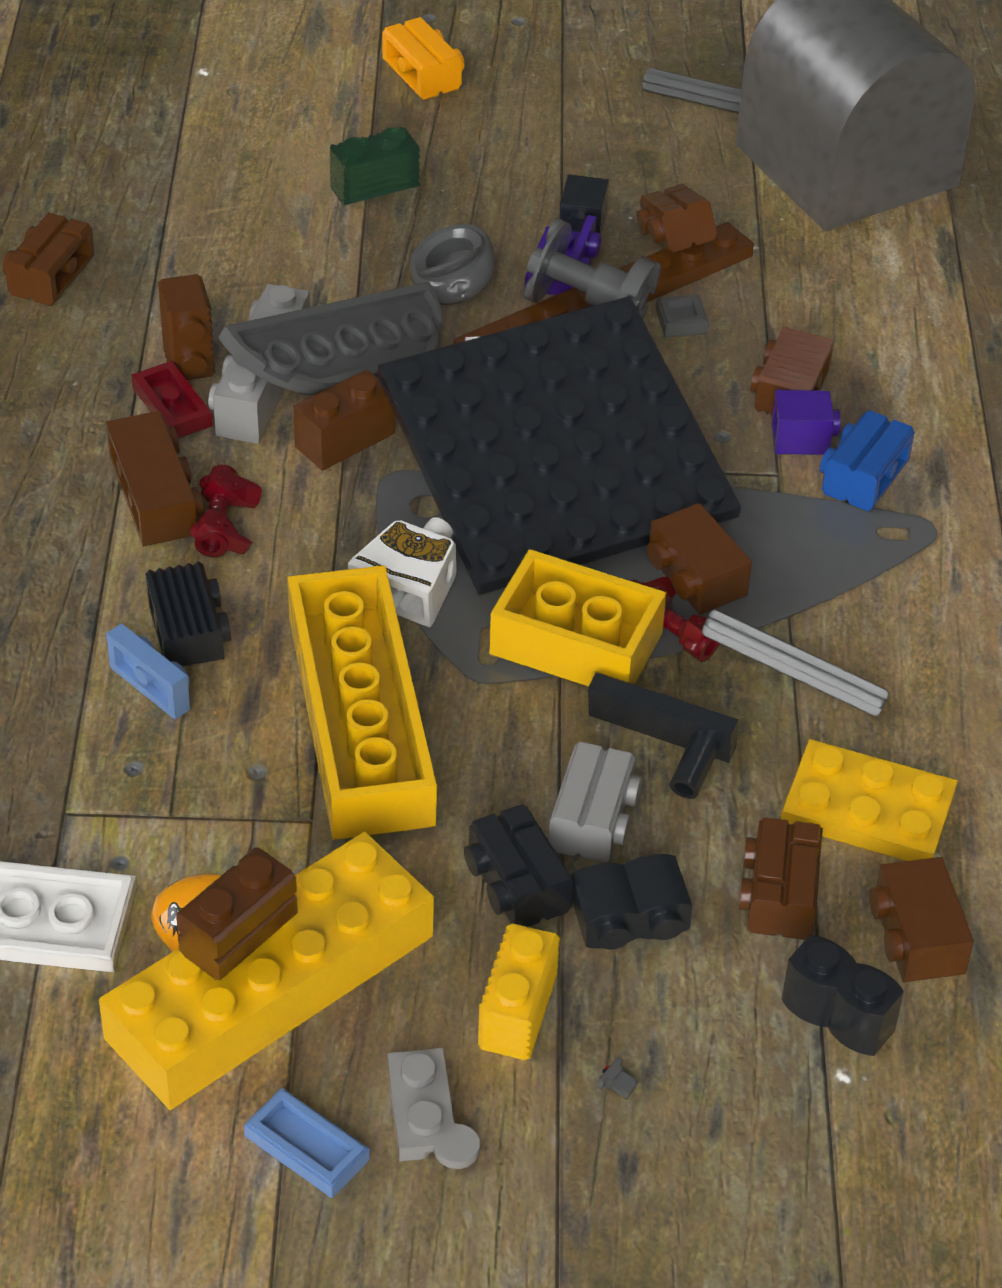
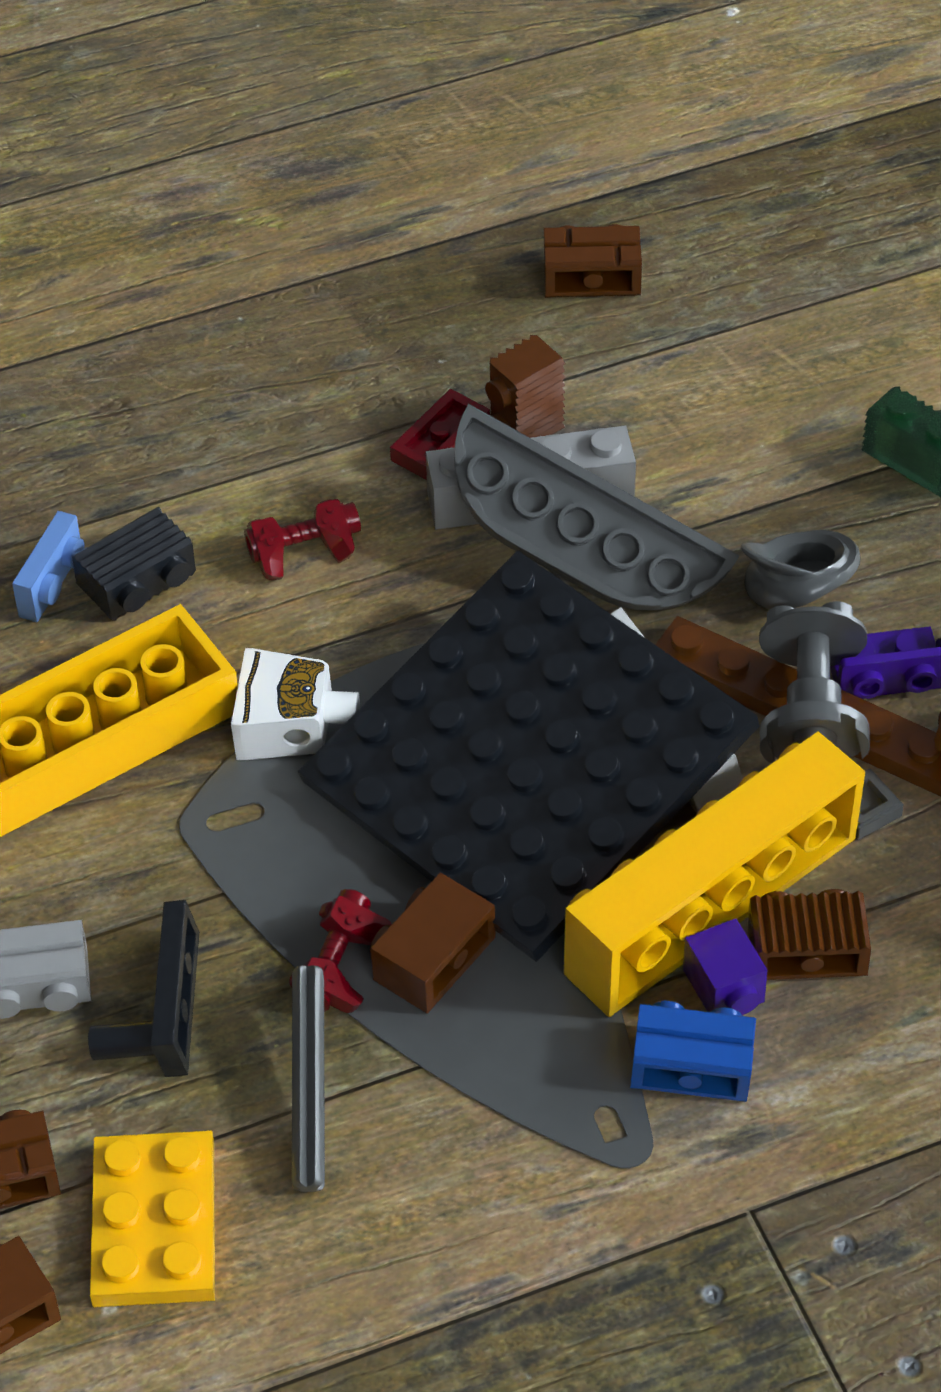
camera: 70 degrees right, 5 degrees up
(153, 477) = (313, 462): reddish brown brick -> none
(343, 420) = (463, 560): reddish brown brick -> none
(576, 621) = (259, 865): yellow brick -> none
(732, 389) = (705, 872): none -> yellow brick

